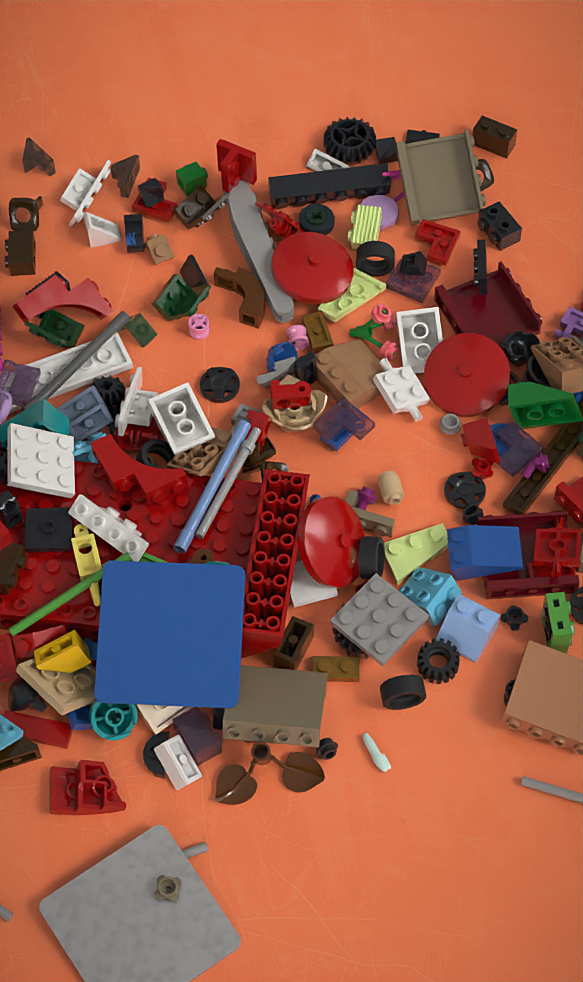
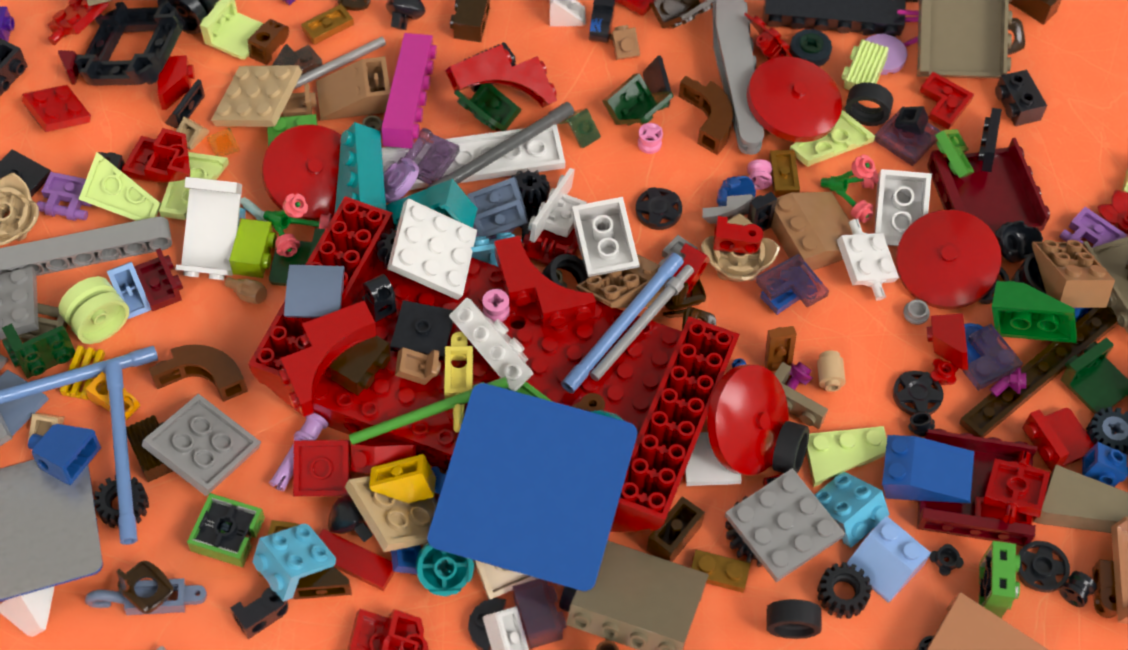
camera: 10 degrees right, 0 degrees up
(51, 560) = (417, 366): none -> medium nougat bracket
(108, 498) = (496, 305): none -> bright pink wheel
(345, 477) = (780, 347): none -> dark orange plate
(452, 279) = (953, 145): none -> bright green plate

